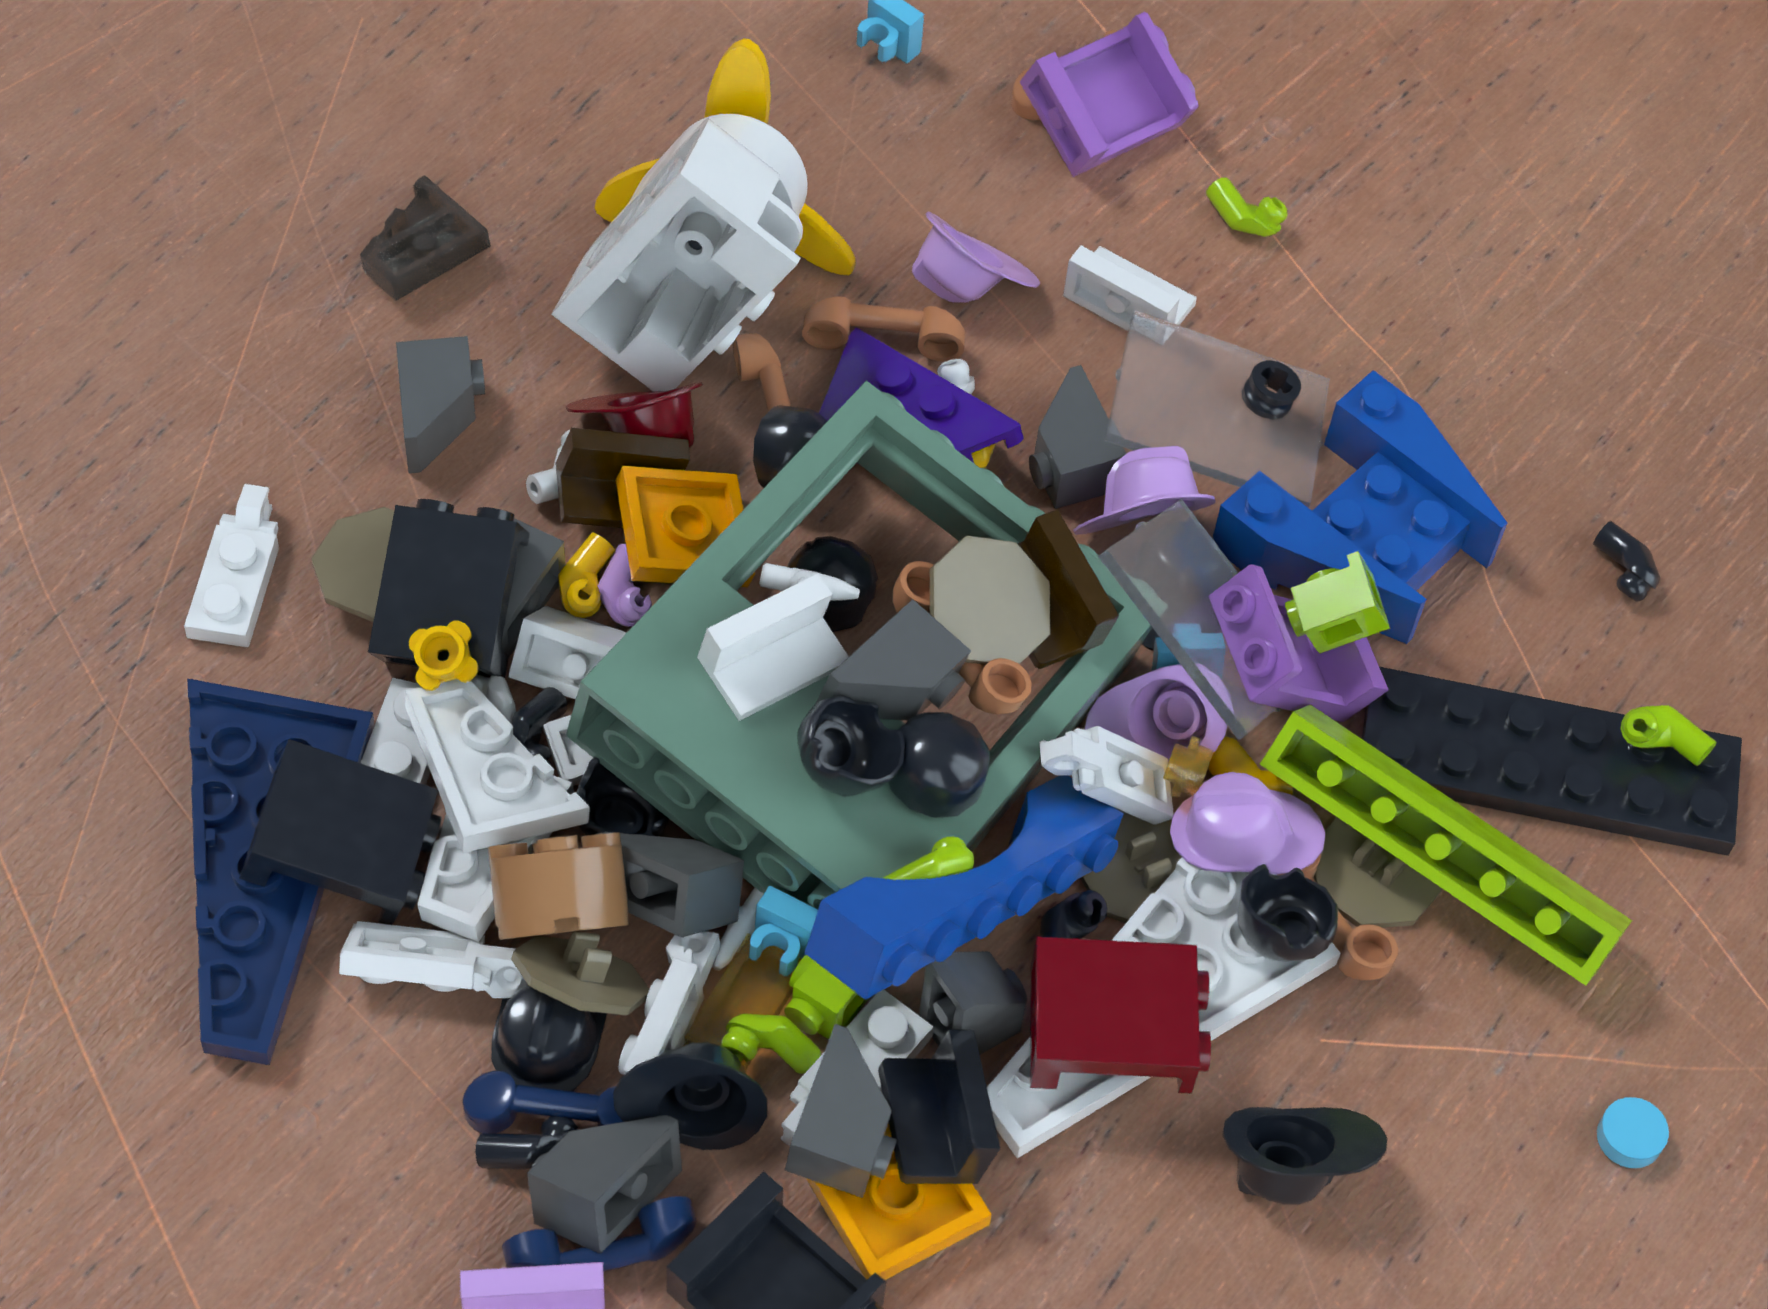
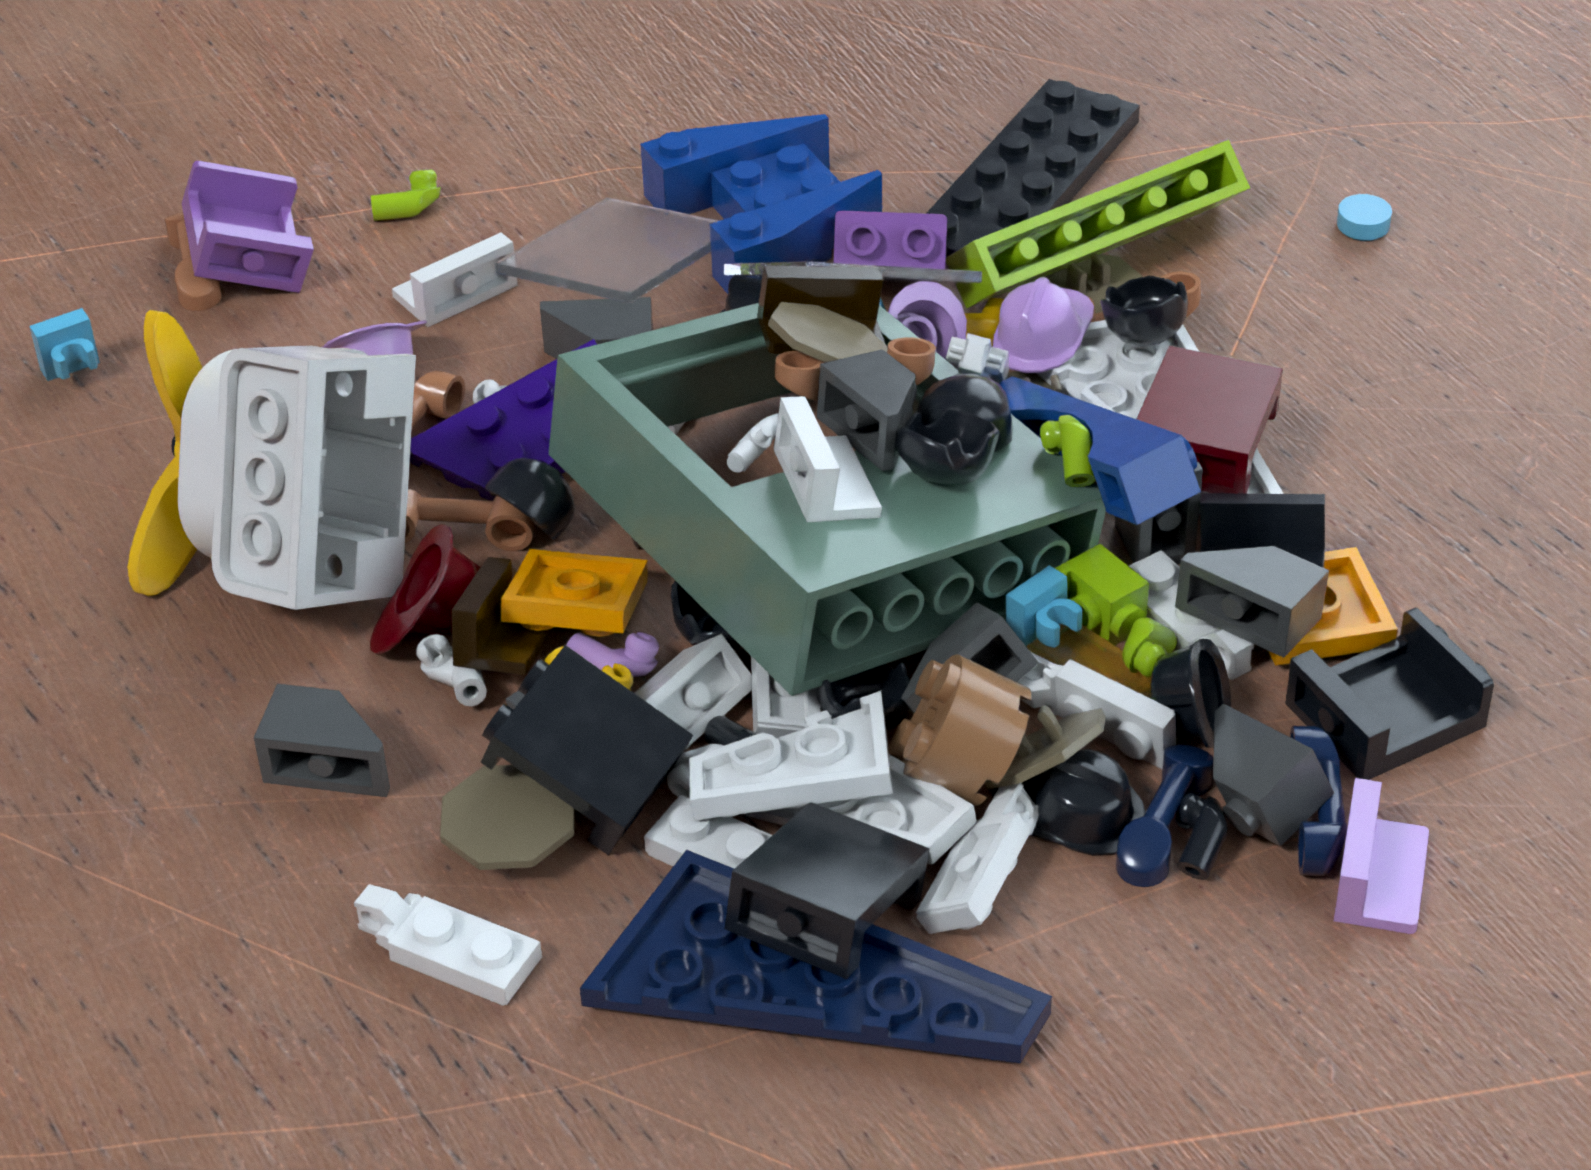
camera: 65 degrees left, 15 degrees down
(422, 241) = (107, 719): clear smoke wing -> none
(428, 644) = (674, 739): yellow plate -> none
(1146, 485) = (688, 287): lavender piece -> none
(1187, 767) = (980, 323): clear yellow plate -> none
(1265, 402) = (618, 212): black bush -> none
(1299, 1150) = (1348, 362): black piece -> none
(1337, 606) = (873, 186): lime brick -> none
(1633, 556) = (863, 89): black arm -> none
(1666, 728) = (1038, 96): lime arm -> none

